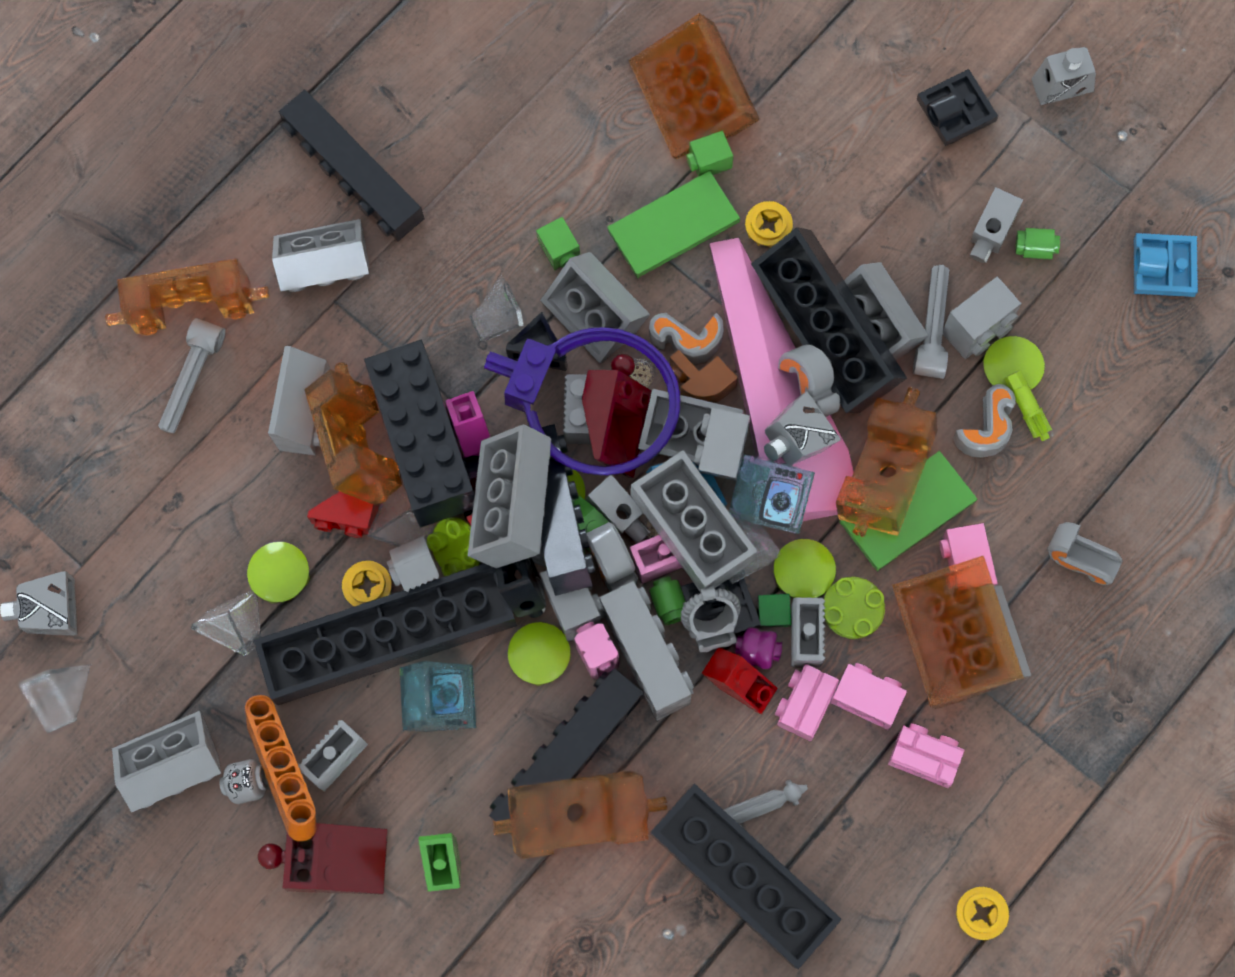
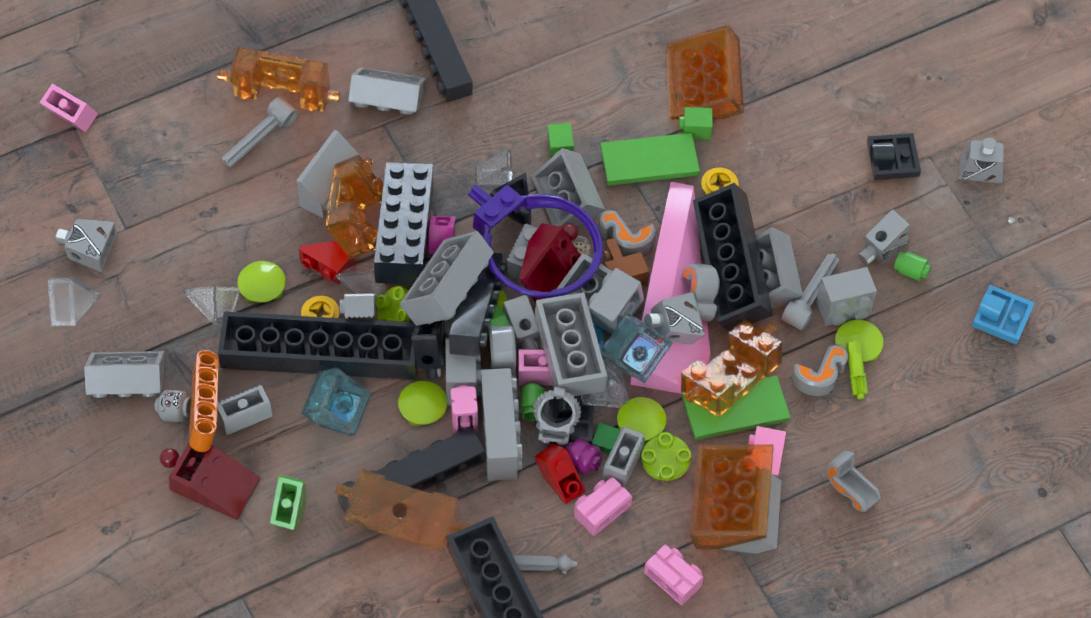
camera: 15 degrees right, 15 degrees down
(869, 696) = (649, 518): bright pink brick -> none

